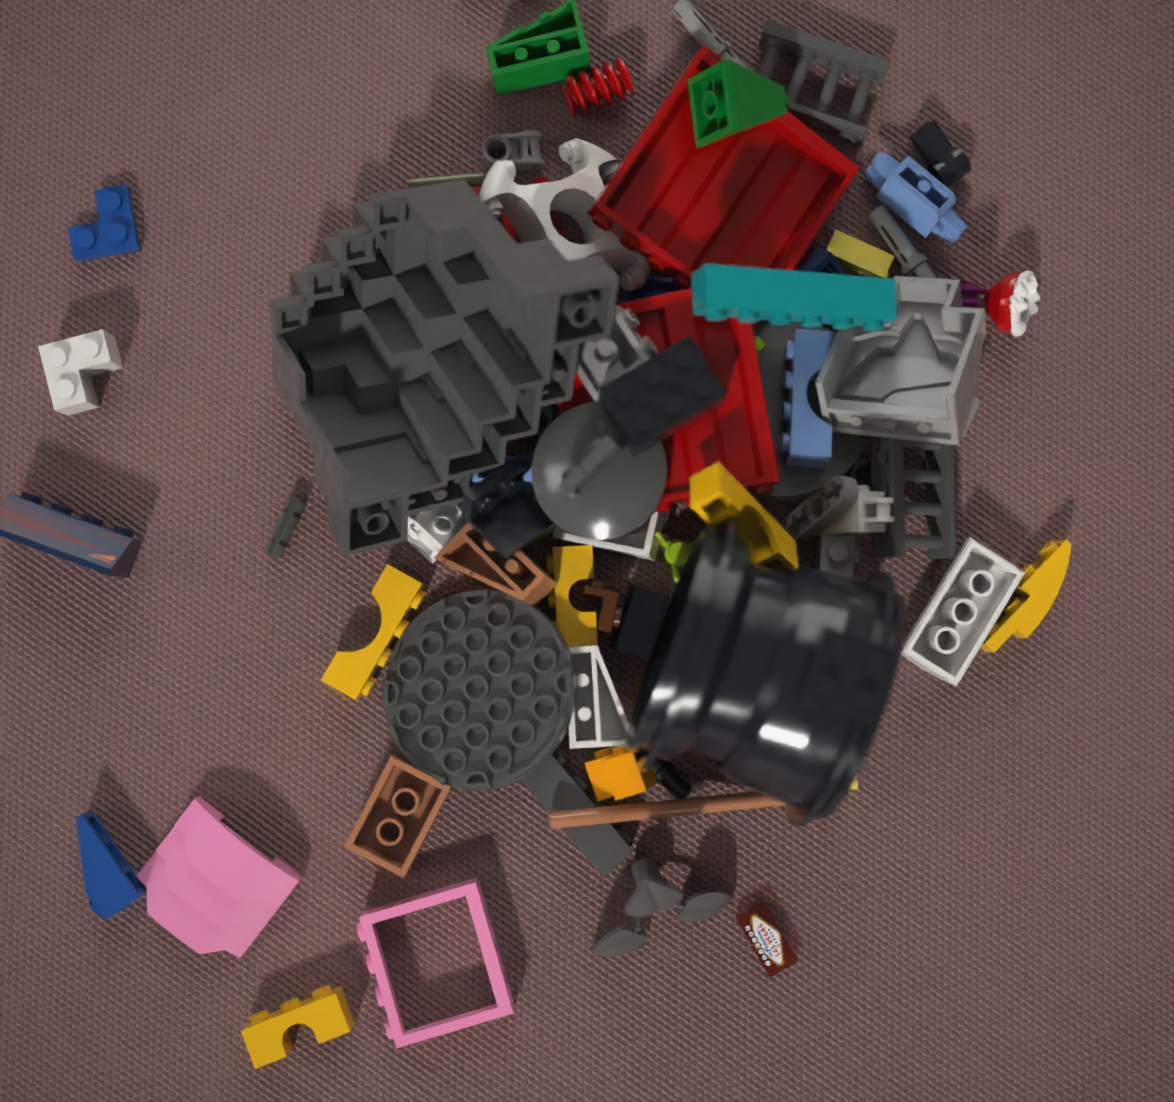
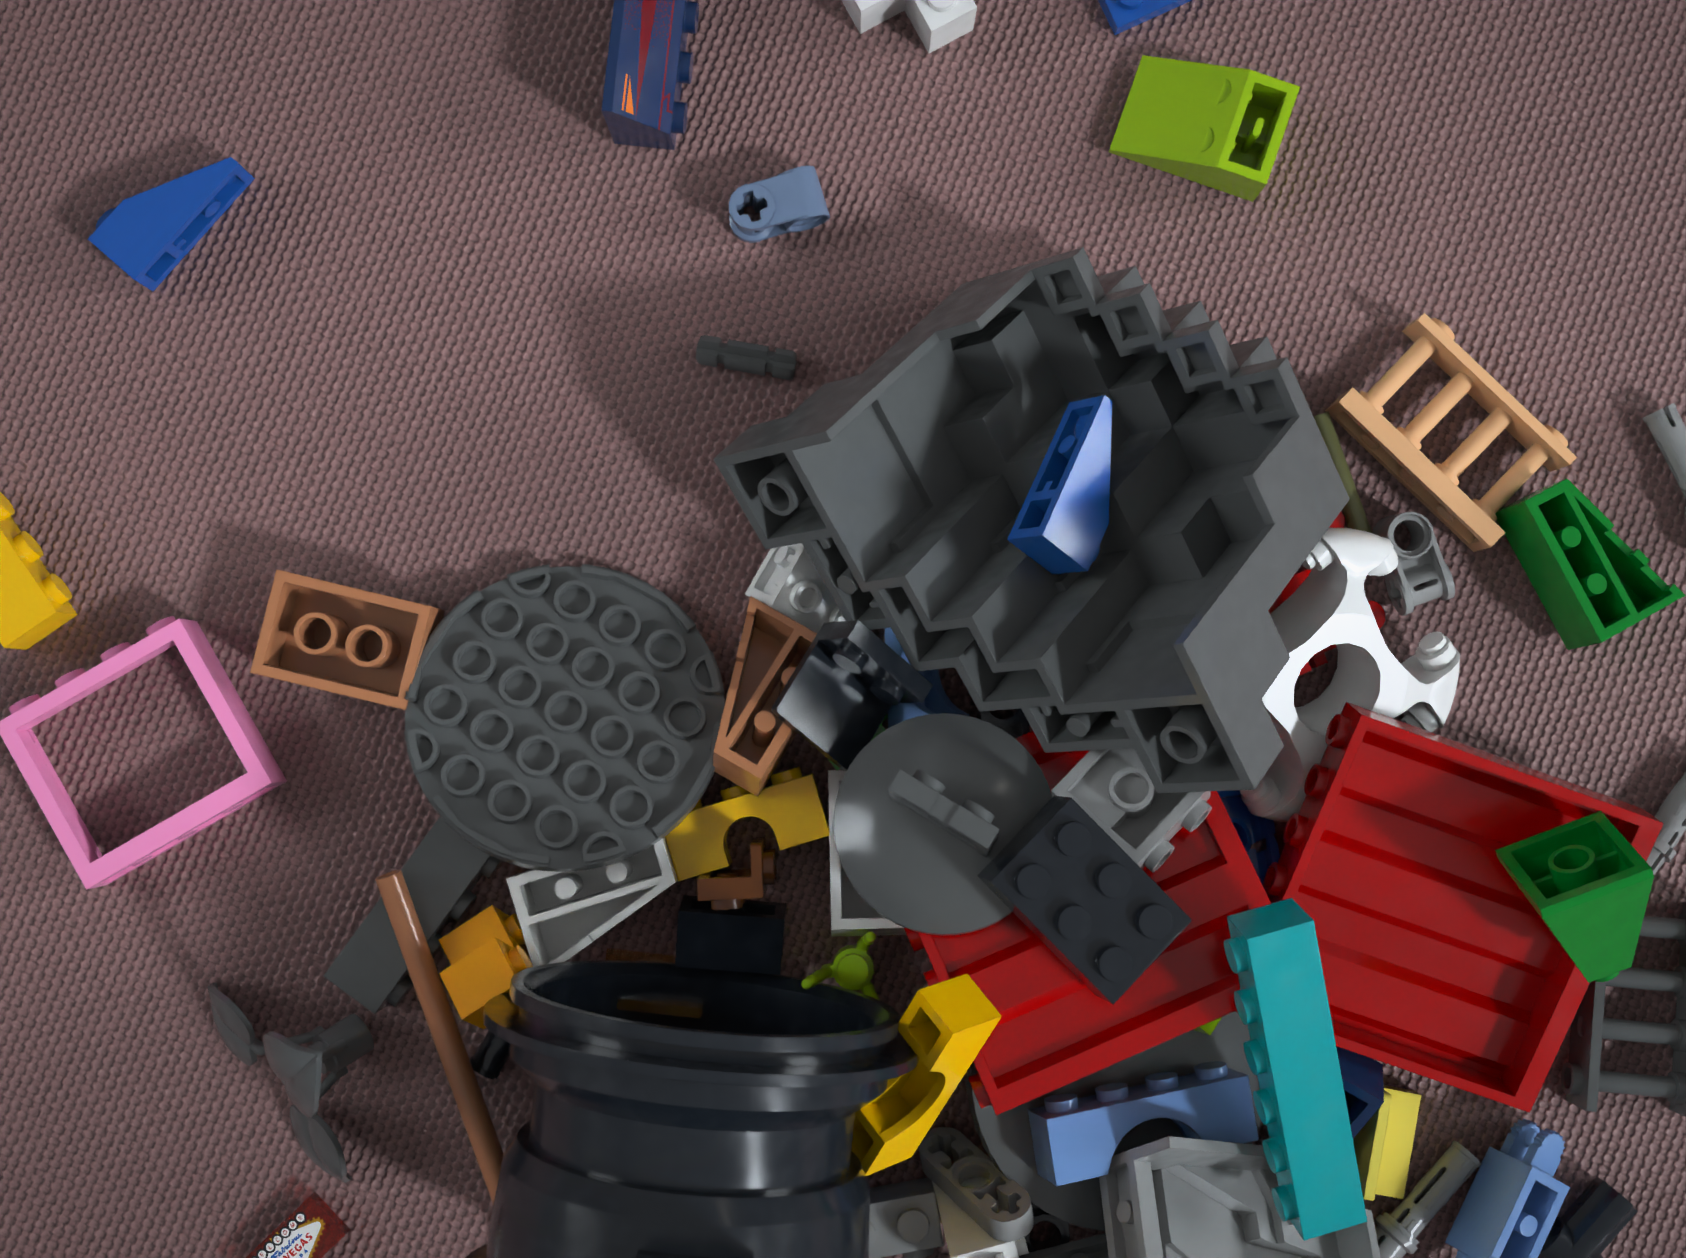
camera: 80 degrees right, 0 degrees up
(195, 477) = (785, 204): none -> sand blue piece
(211, 208) = (1205, 123): none -> lime slope
(213, 884) = (181, 386): bright pink slope -> none
(396, 596) = (553, 515): yellow arch -> none
(419, 345) = (1071, 492): none -> blue slope
(469, 124) = (1438, 483): none -> light nougat fence
(597, 86) = (1549, 666): red piece -> none

